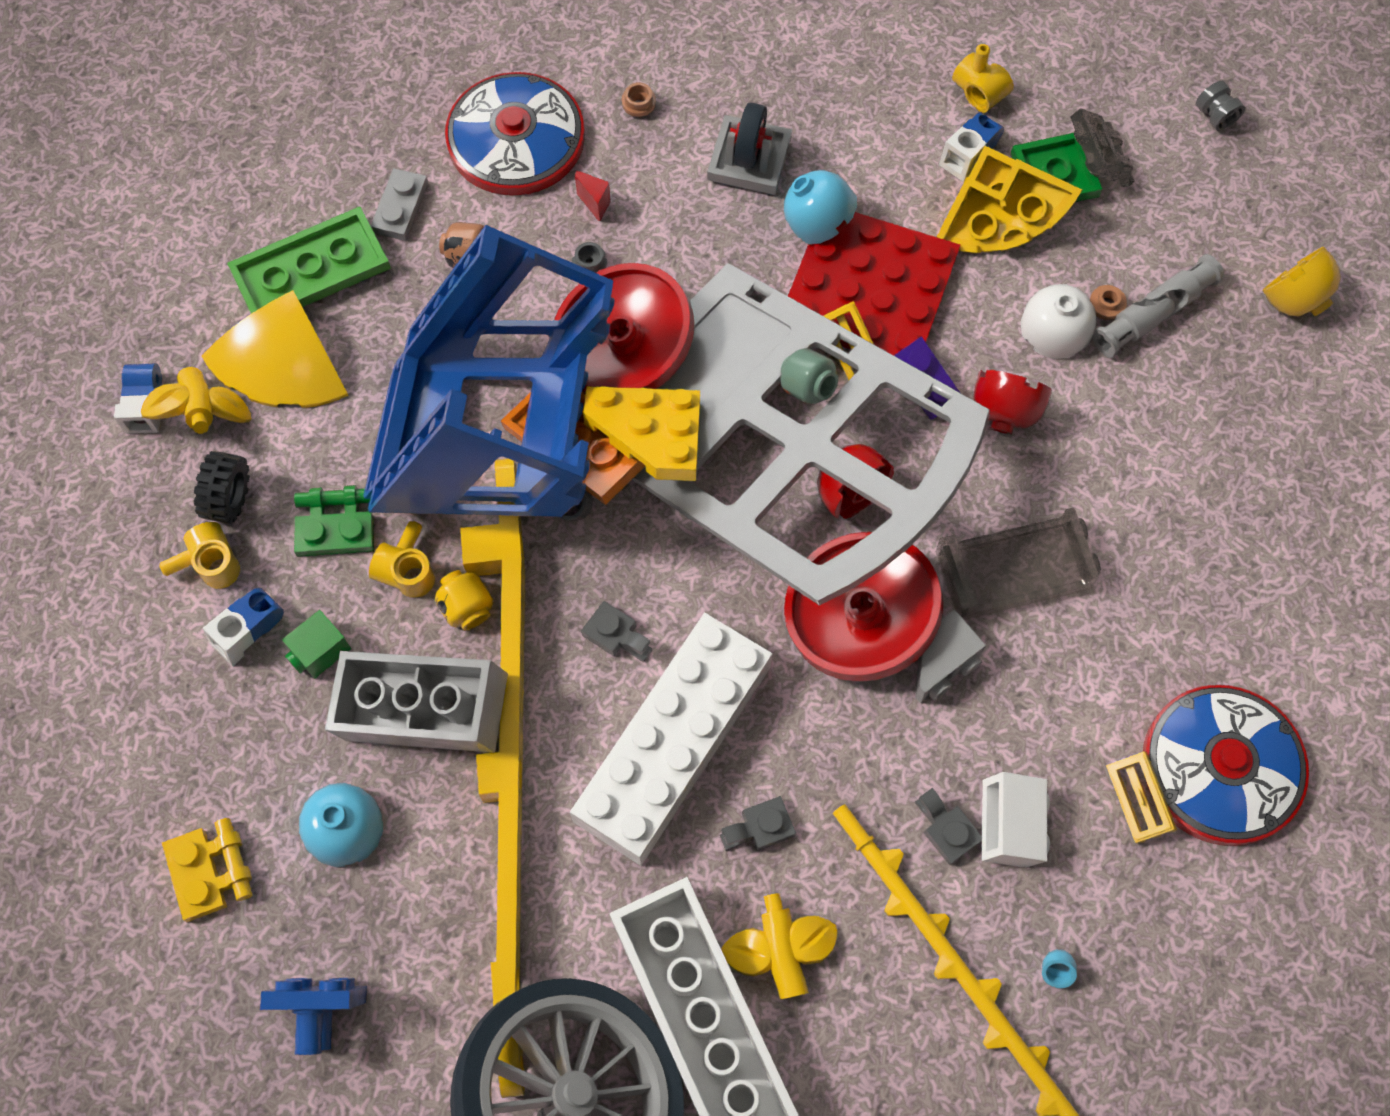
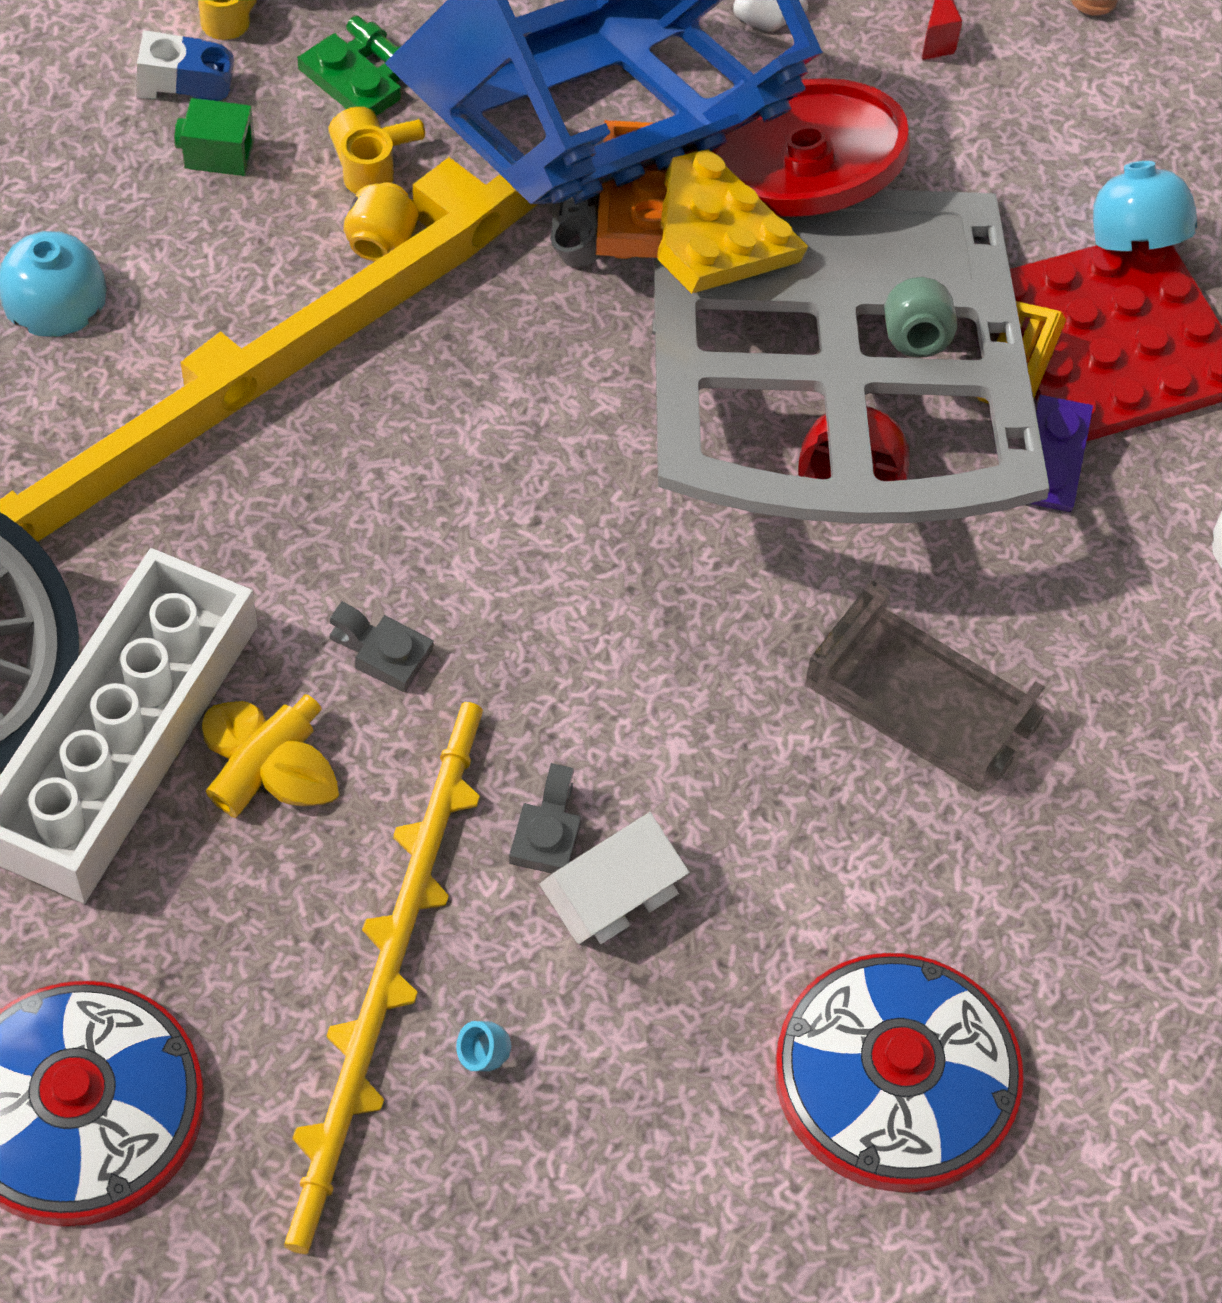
camera: 45 degrees right, 10 degrees down
(417, 701) = (229, 242): light grey brick -> none
(590, 251) = (867, 69): dark grey plate -> none
(614, 630) = (475, 372): dark grey plate -> none
(671, 739) = (403, 495): white brick -> none
(750, 151) = (1145, 115): light grey plate -> none
(873, 626) = (718, 571): red dish -> none
(952, 652) = (740, 686): light grey slope -> none
(1011, 400) = (1111, 545): red cylinder -> none
(1153, 829) = (776, 1002): yellow tile -> none

